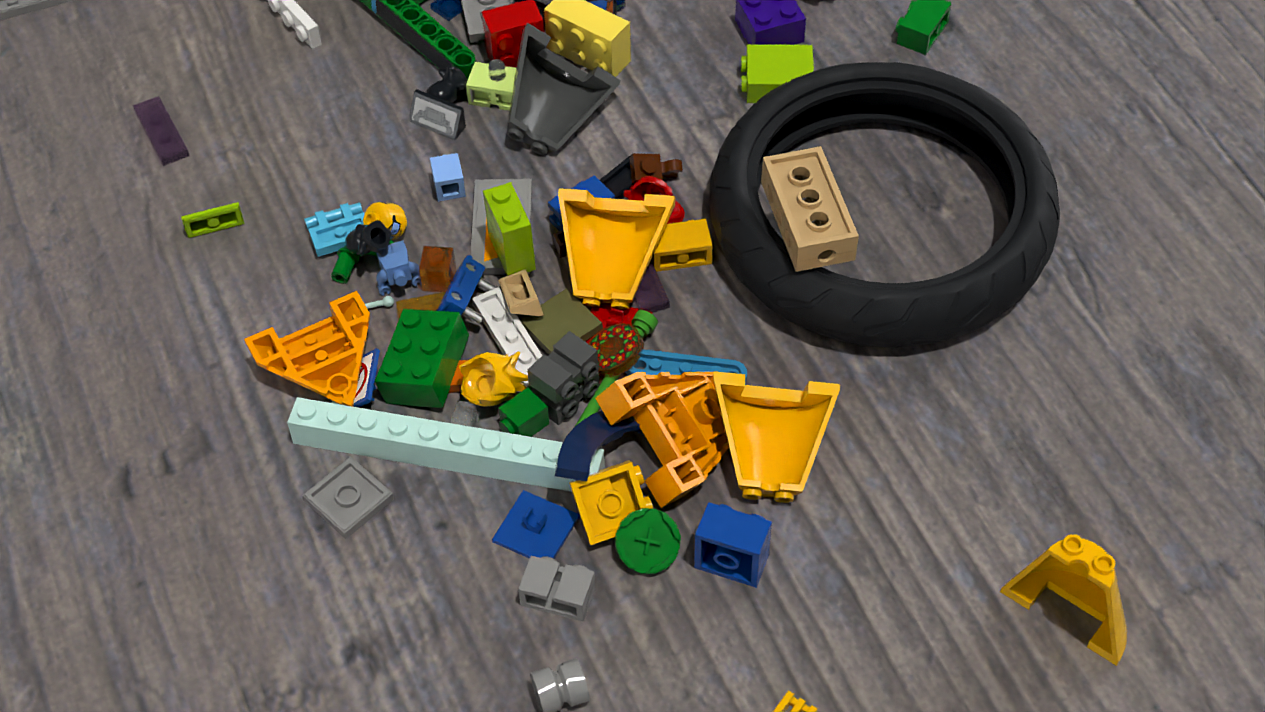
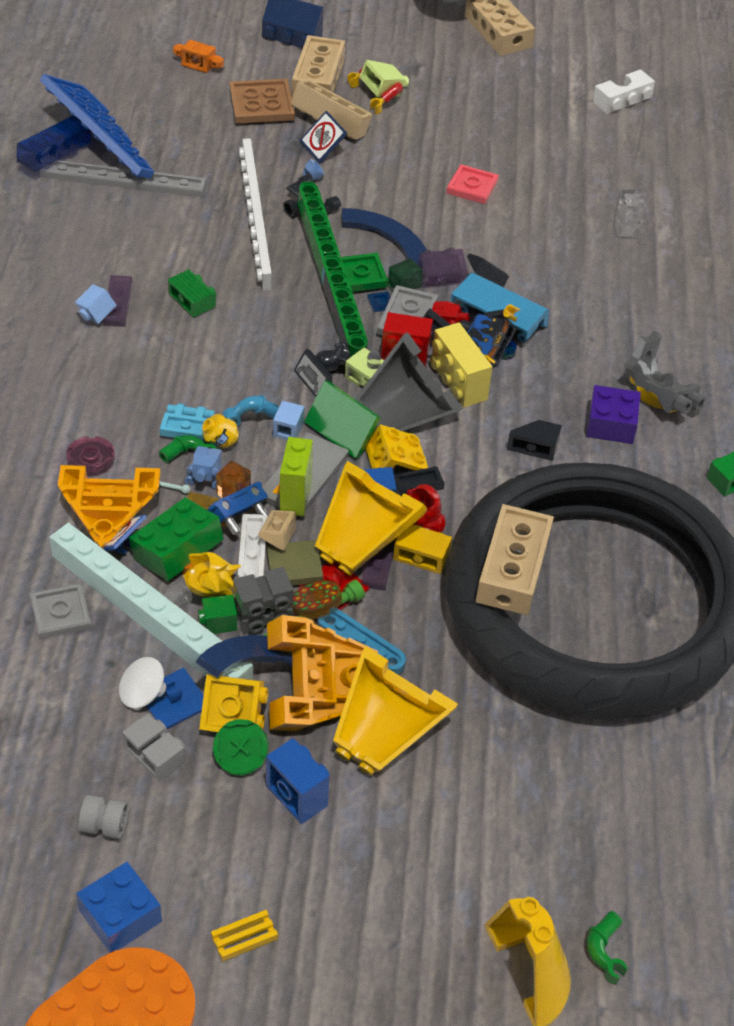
camera: 25 degrees right, 5 degrees down
(143, 144) = (95, 304): none -> light blue brick
(212, 220) = (107, 376): lime slope -> none
(240, 85) = (192, 293): none -> green brick
(256, 313) = (93, 453): none -> clear pink tile
(369, 238) = (195, 437): black animal -> none
(402, 174) = (253, 403): none -> dark azure piece
(497, 528) = (142, 683): none -> white dish
(505, 148) = (342, 419): none -> tile
(577, 156) = (394, 447): none -> yellow bracket
(651, 165) = (442, 483): reddish brown plate -> none
(713, 79) = (535, 439): none -> black slope
(772, 66) = (590, 447): lime brick -> none
(1115, 546) = (596, 943): none -> green piece

